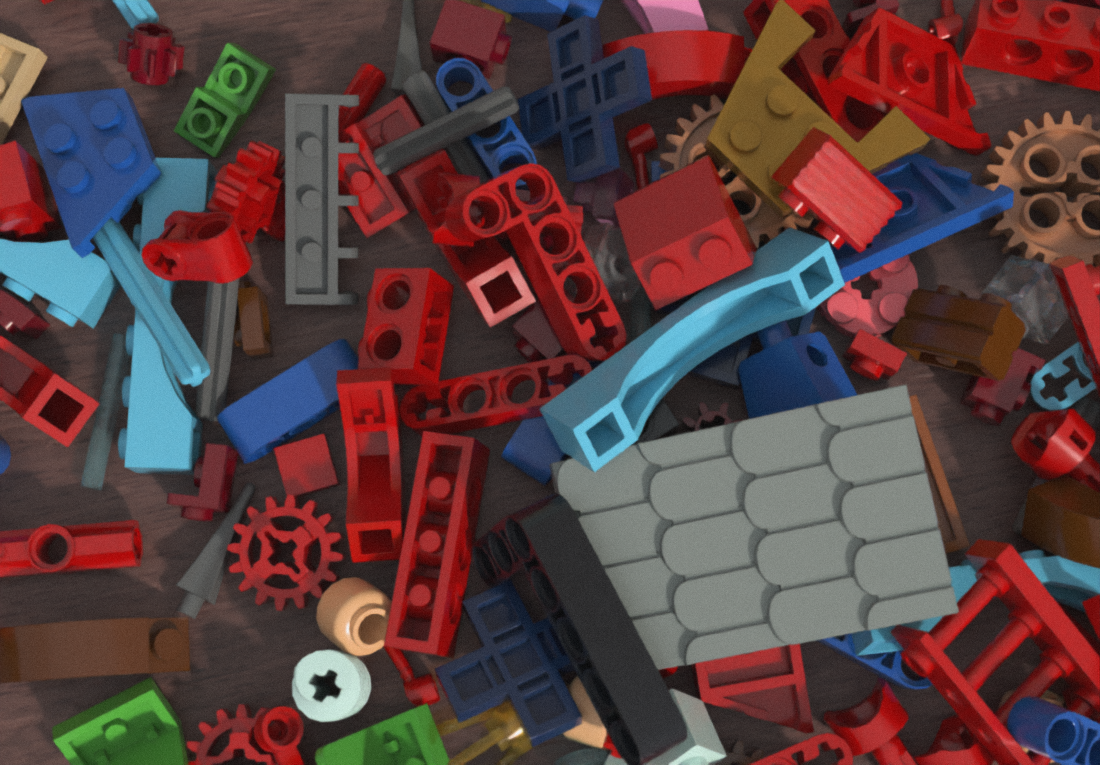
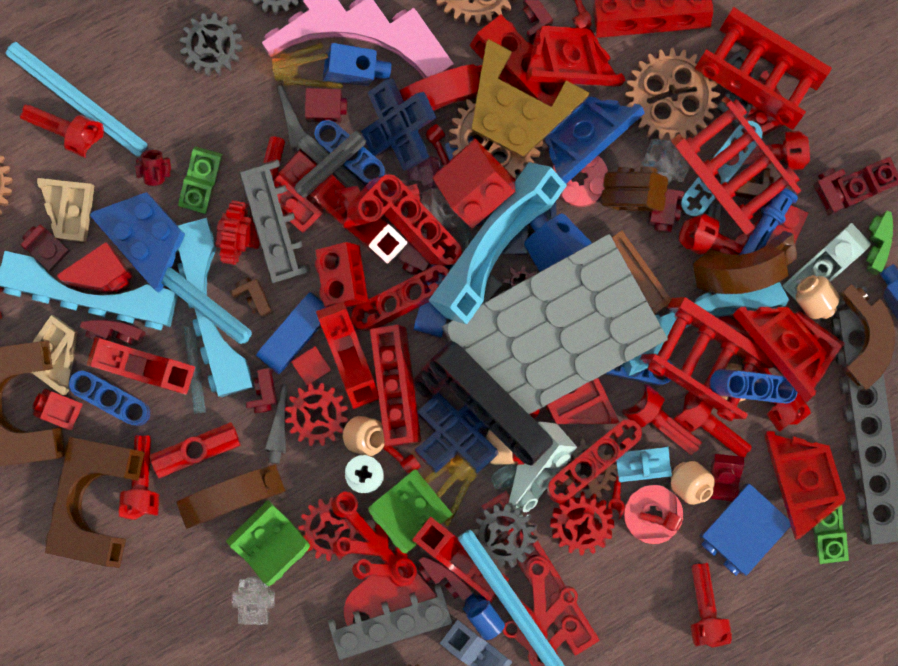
camera: 20 degrees left, 5 degrees up
(198, 248) = (223, 268): red piece -> none
(217, 348) = (244, 313): dark grey axle -> none
(835, 190) = (546, 138): brick -> none
(873, 356) = (594, 216): red plate -> none

